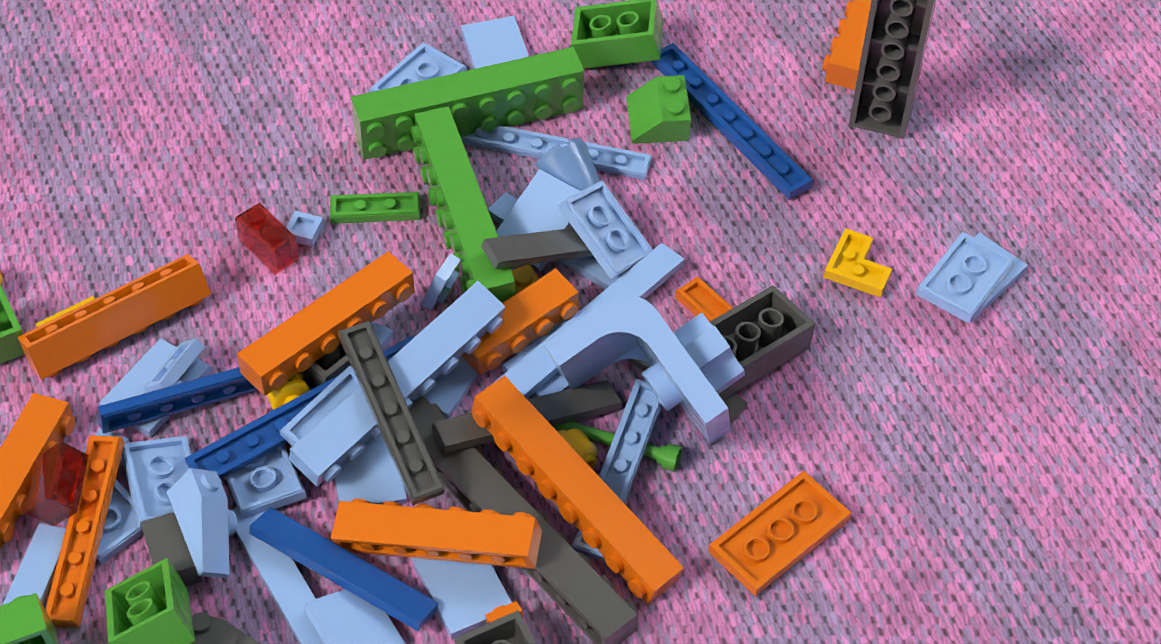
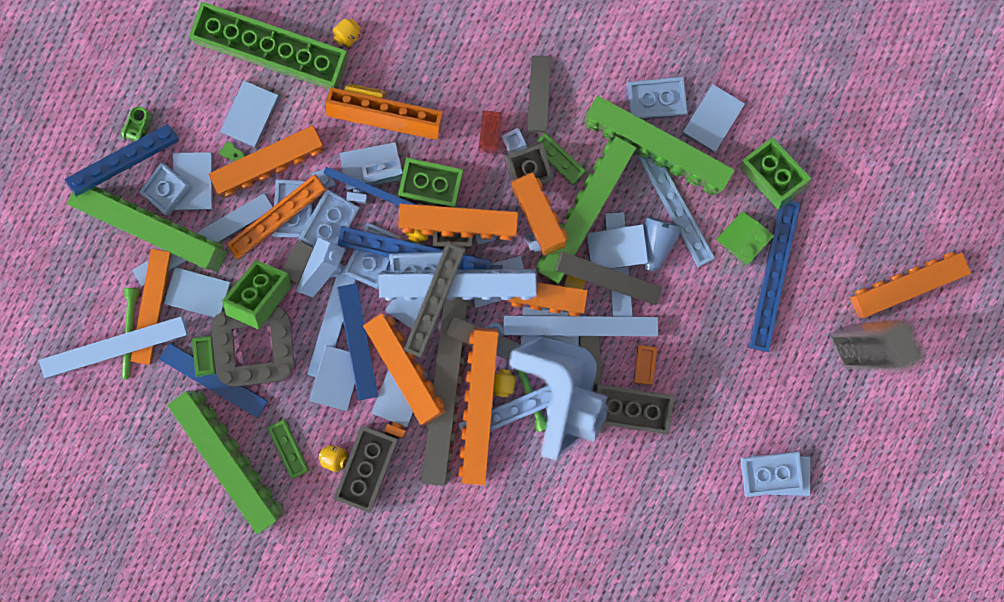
camera: 50 degrees right, 35 degrees up
(57, 484) = (280, 187): clear red brick -> none
(173, 423) = (357, 197): none -> light blue plate
(241, 325) = (430, 183): none -> bright green brick
(283, 165) = (539, 94): none -> dark grey slope
(348, 228) = (528, 160): none -> dark grey brick
(414, 236) = (538, 213): none -> orange brick
(605, 229) = (637, 288): light blue tile -> none
(779, 533) = (546, 505): orange plate -> none
(851, 268) = (729, 413): yellow plate -> none

